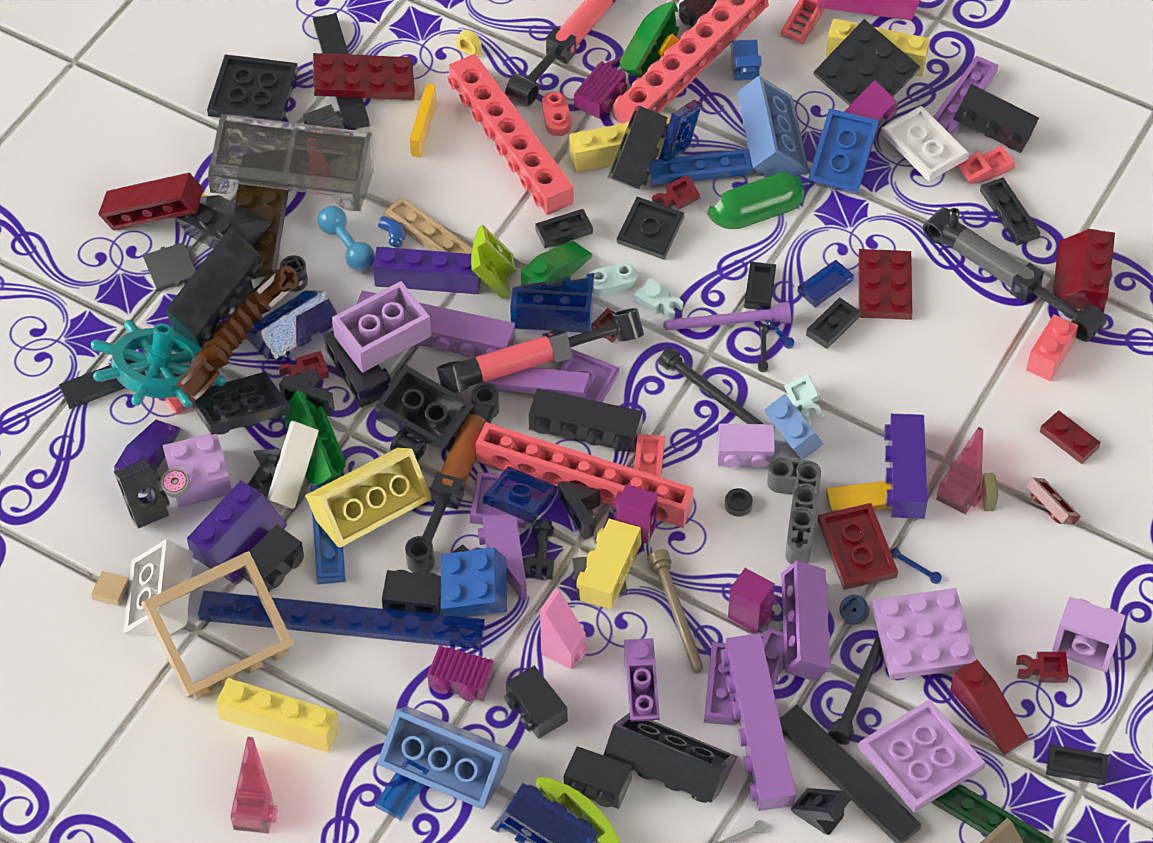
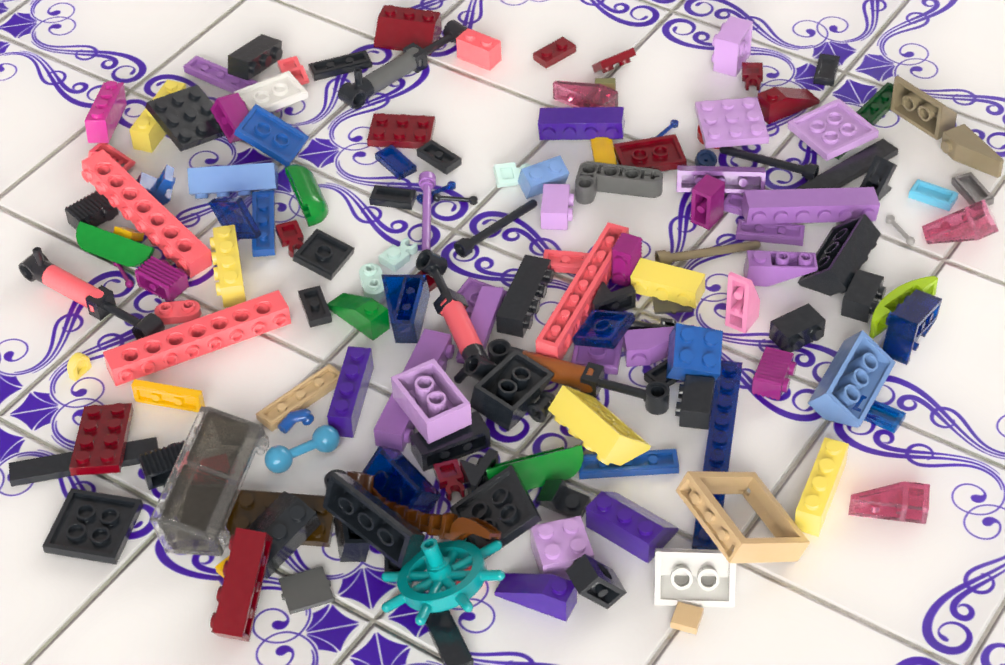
camera: 85 degrees left, 10 degrees down
(175, 483) = (592, 547): tile -> none
(275, 557) = (658, 495): black brick -> none
(292, 465) = (566, 473): white tile -> none
(492, 261) = (344, 338): lime slope -> none
(638, 147) = (249, 243): black brick -> none
(738, 502) = (603, 216): black tile -> none

